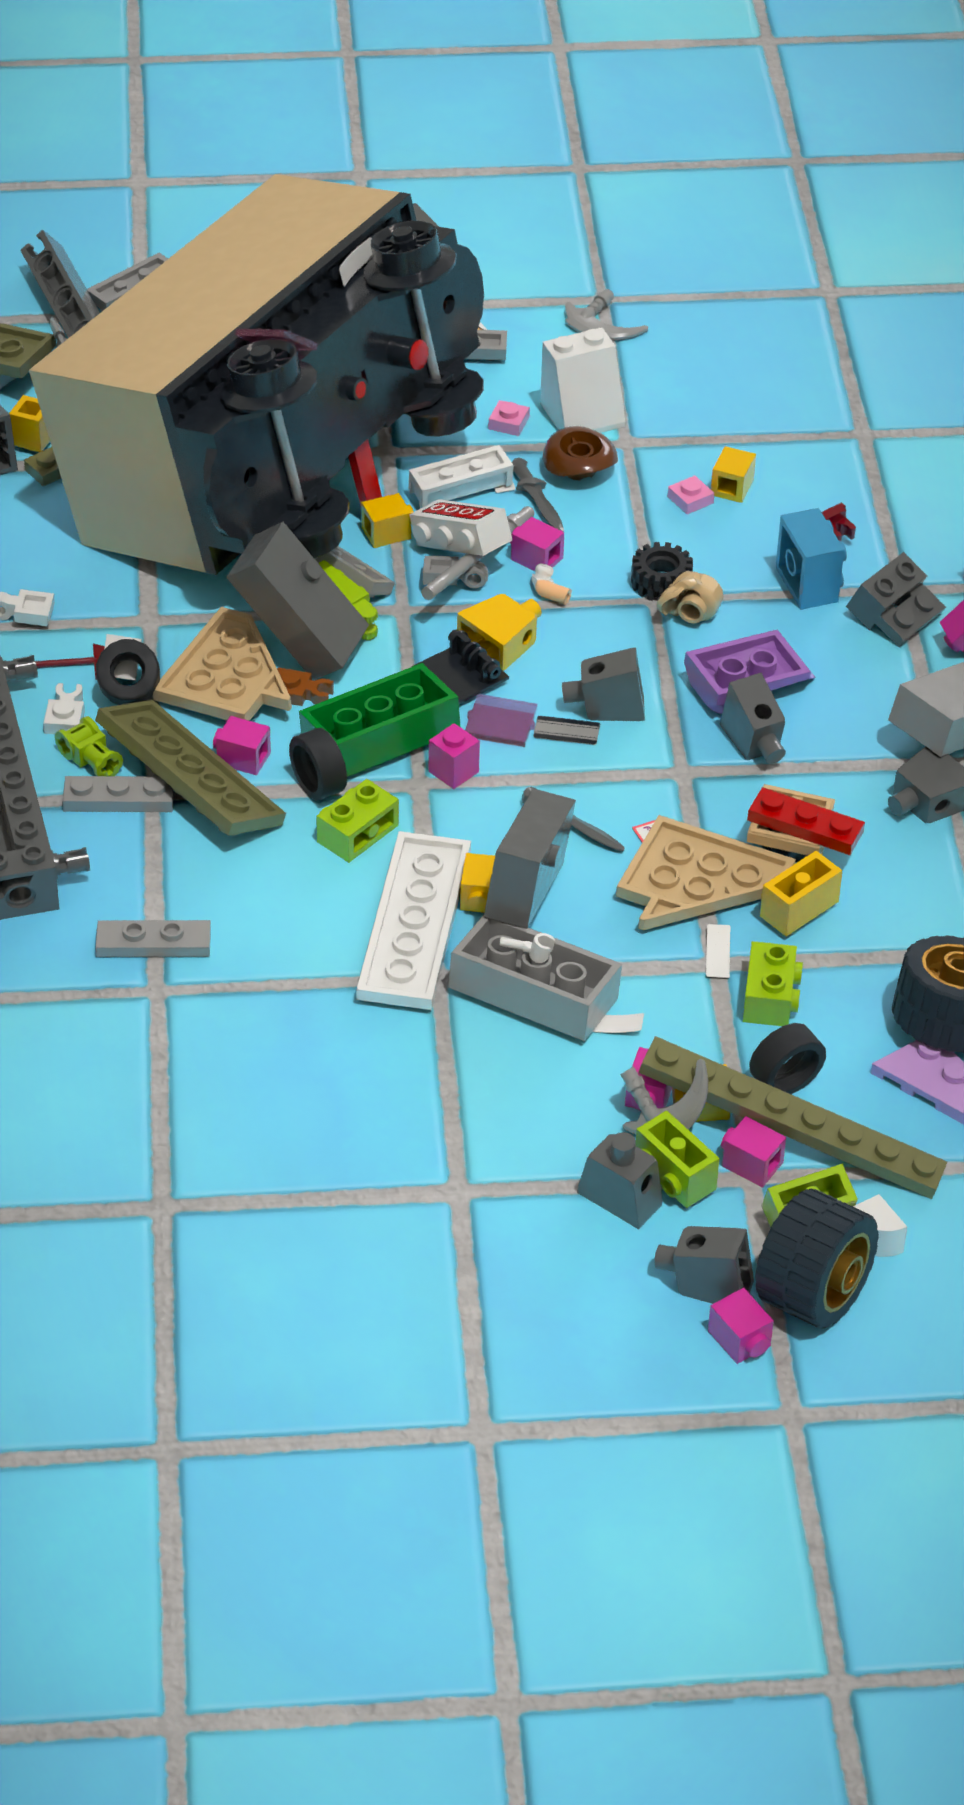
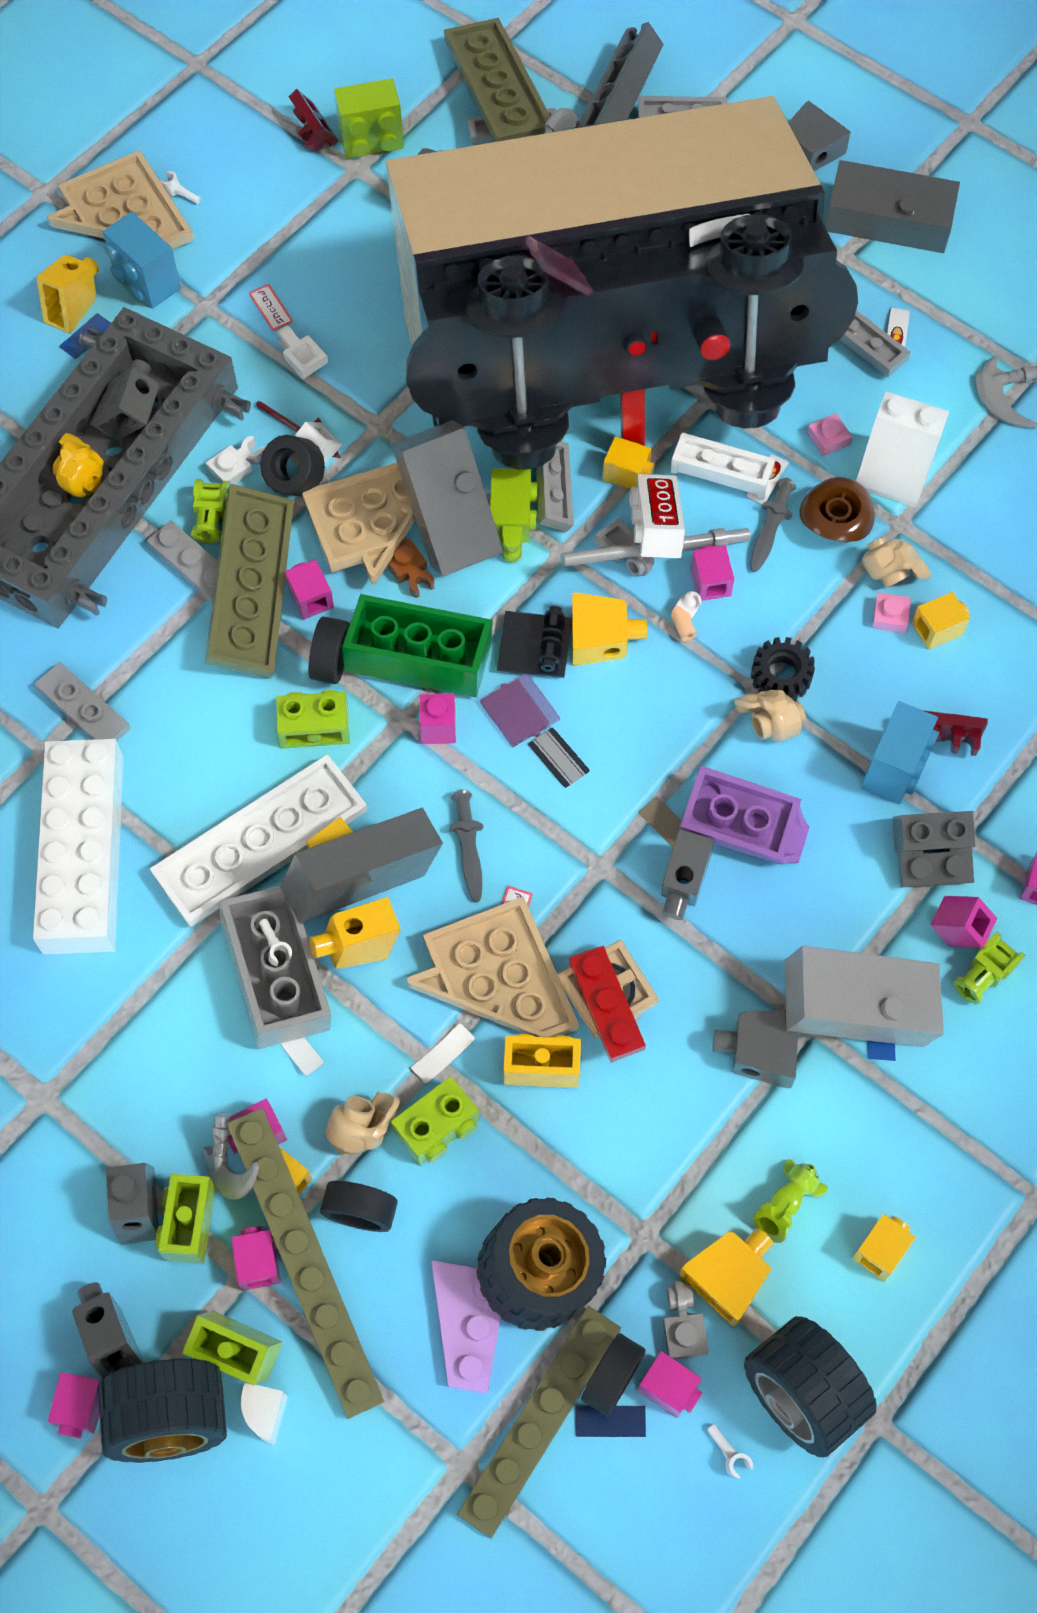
camera: 45 degrees right, 20 degrees up
(281, 1014) = (79, 847): none -> white brick
(578, 916) = (358, 935): none -> yellow torso
(609, 687) = (613, 751): dark grey torso -> none
(658, 458) = (892, 559): none -> tan head
(693, 717) = (661, 819): none -> dark tan sticker
(723, 1018) = (360, 1123): none -> tan head

